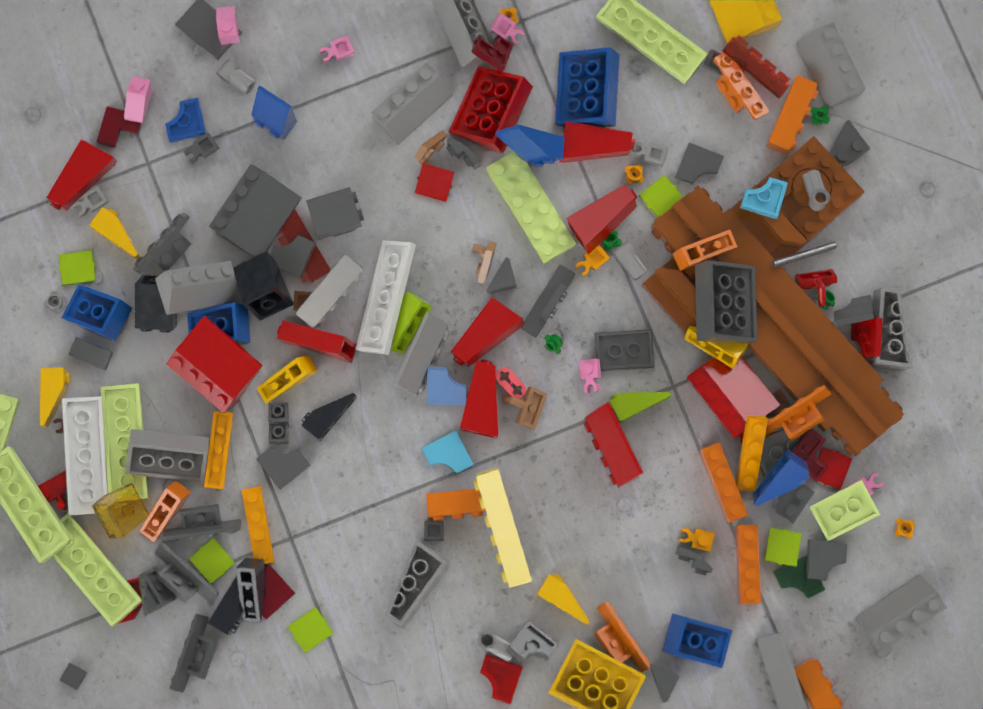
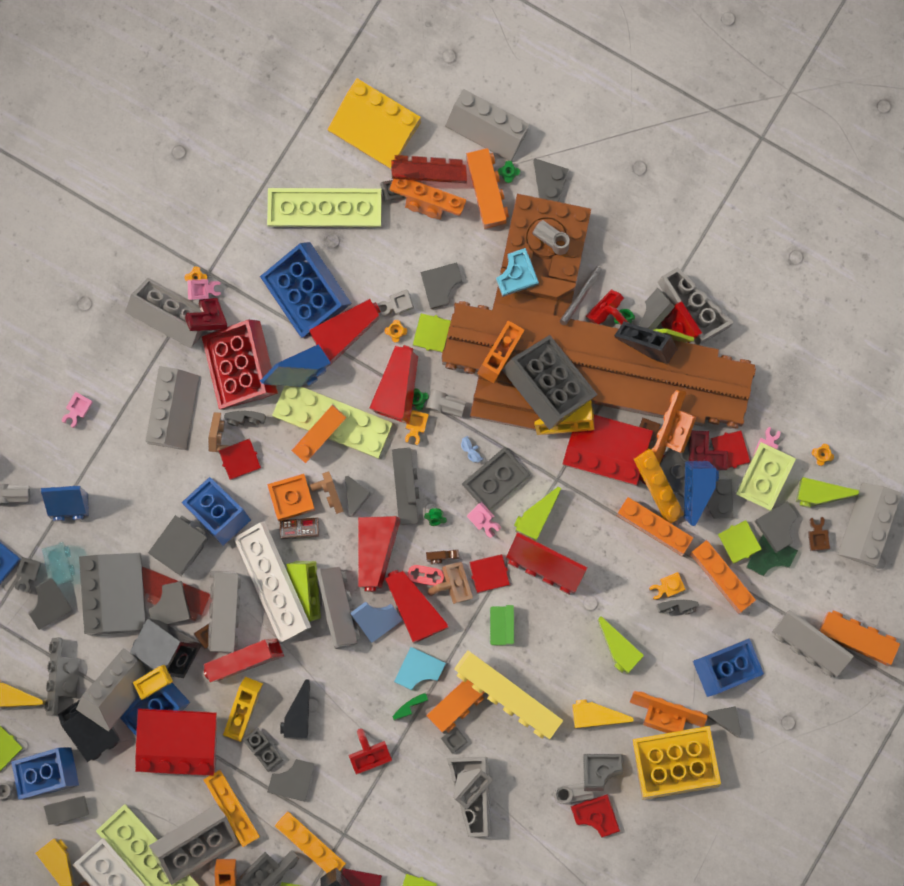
camera: 35 degrees left, 0 degrees up
(201, 185) = (49, 605): none -> dark grey tile
(231, 158) = (58, 563): none -> clear light blue bracket
(231, 303) = (153, 682): none -> yellow tile
(357, 492) = (370, 755): none -> red plate
(385, 209) = (216, 511): none -> blue slope
(413, 477) = (405, 710): none -> green slope
(417, 576) = (470, 786): none -> light grey slope
(439, 271) = (299, 528): none -> slope
(451, 242) = (291, 497): none -> orange plate
(510, 208) = (319, 433): none -> orange slope
(531, 376) = (438, 556): none -> reddish brown plate
(541, 469) = (502, 625): none -> bright green panel
(562, 420) = (489, 573): none -> red piece
(620, 316) = (472, 454): none -> light blue piece
(621, 562) = (620, 649): none -> lime slope
(830, 330) = (647, 341): none -> black slope
(849, 592) = (818, 538): none -> reddish brown plate
(853, 338) = (676, 335): none -> lime piece
(877, 556) = (816, 492): none -> lime slope

